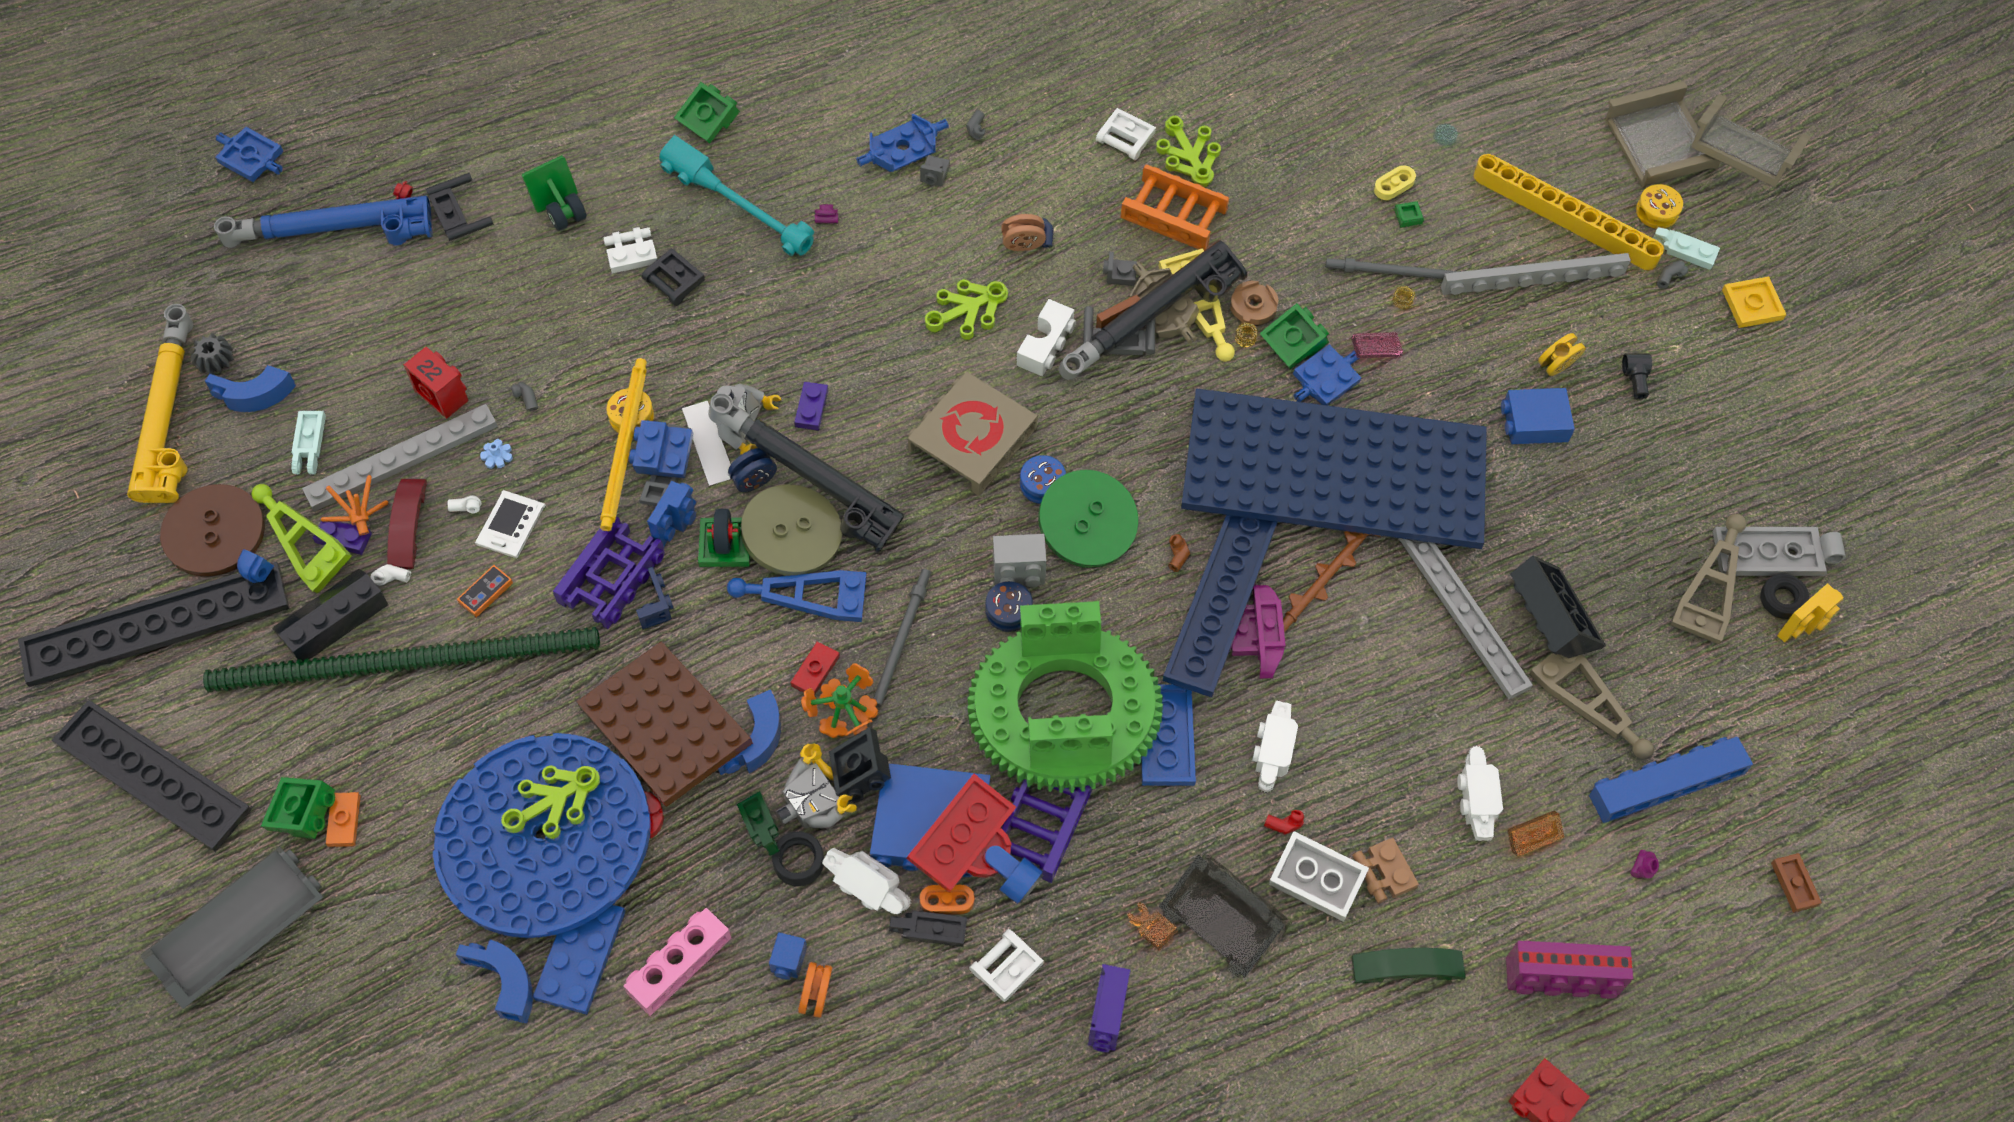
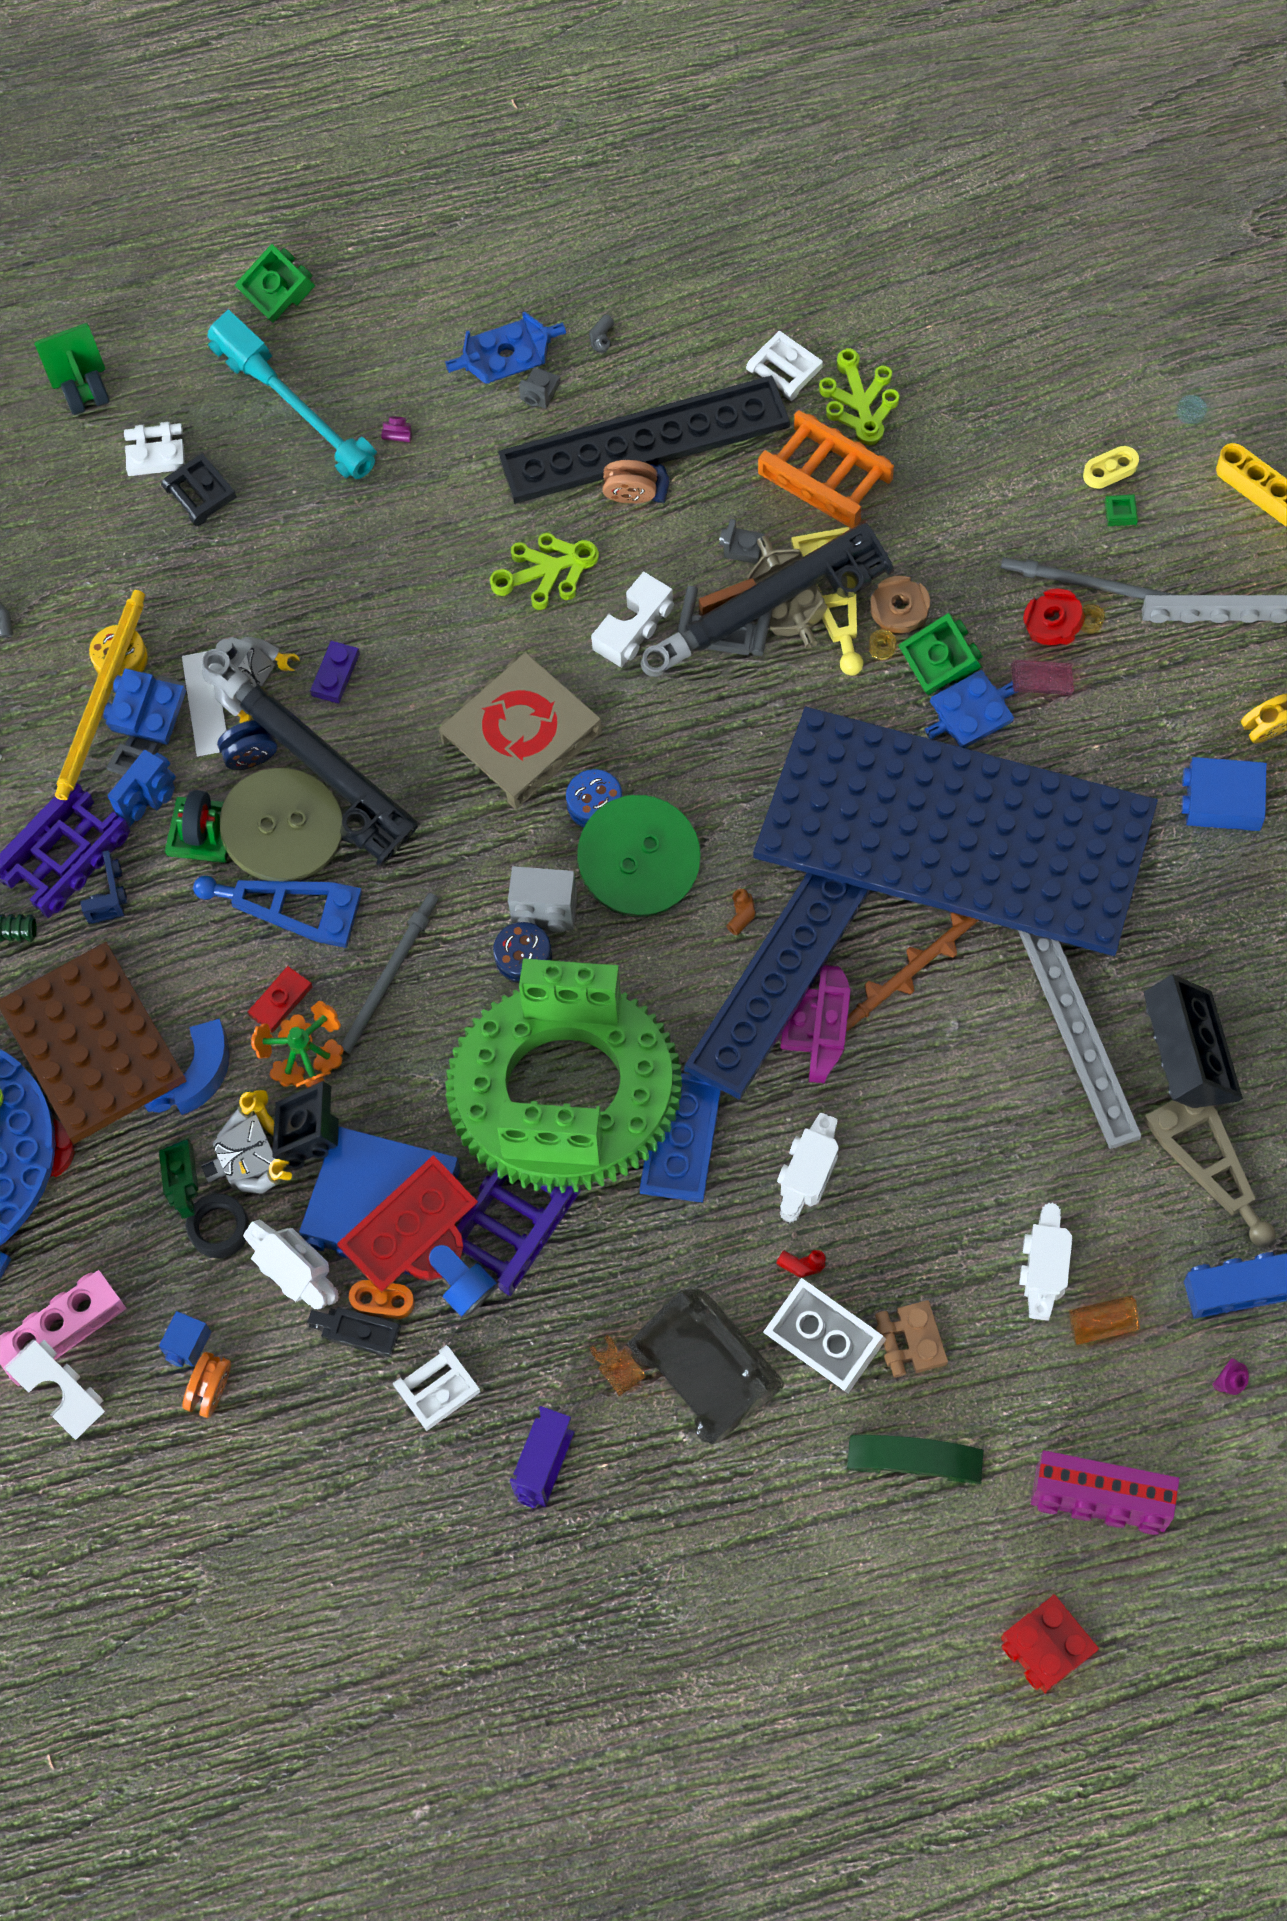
camera: 15 degrees right, 5 degrees up
(707, 1023) = (78, 1407): none -> white arch
(1036, 195) = (644, 436): none -> black plate
(1381, 309) = (1061, 630): none -> red plate

